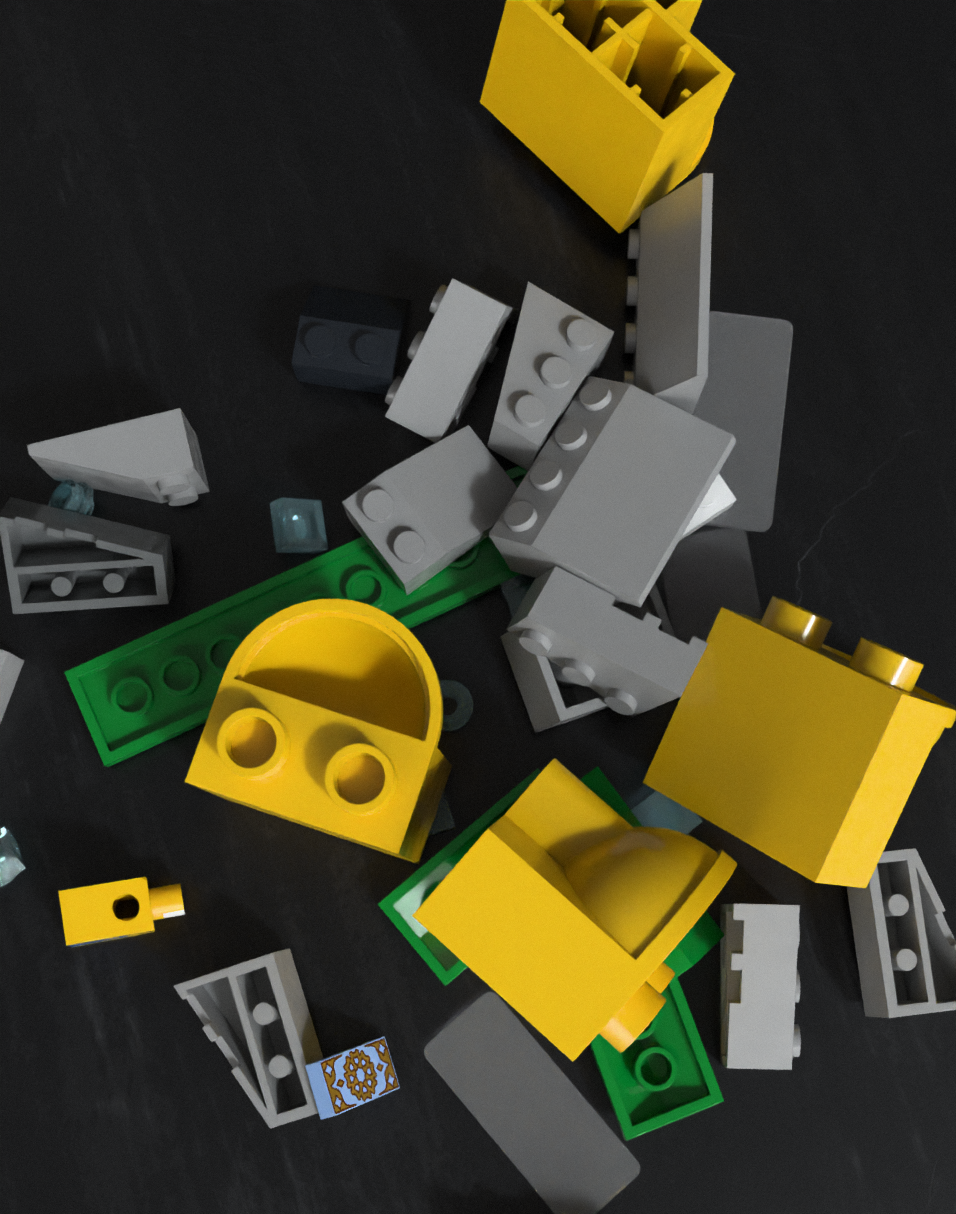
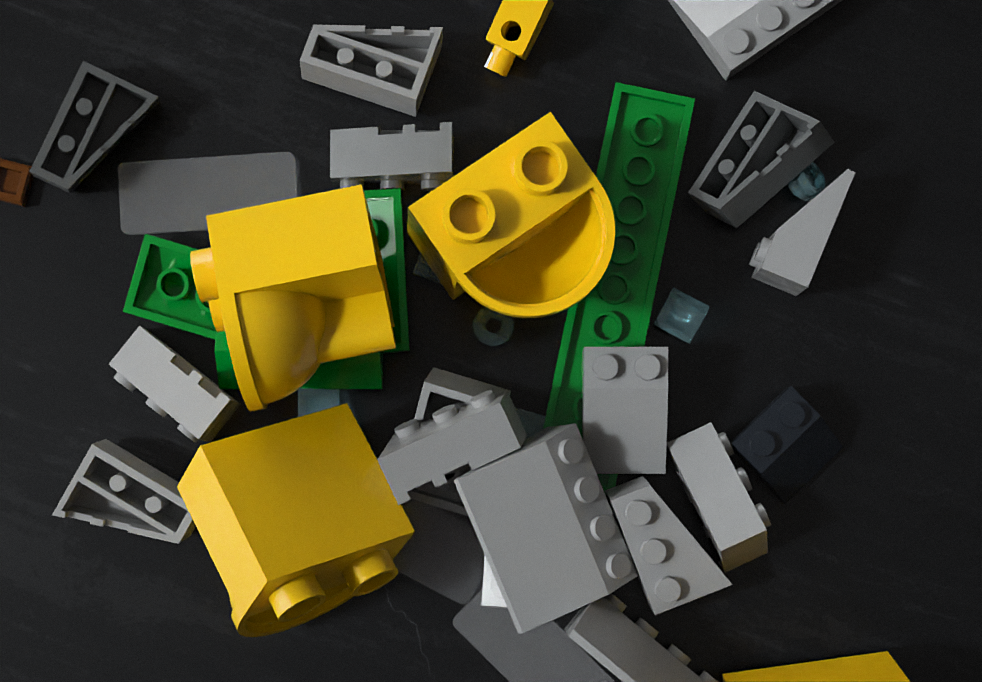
camera: 130 degrees right, 5 degrees up
(350, 935) = (392, 157): none -> wedge
(352, 1077) = (307, 96): tile -> none

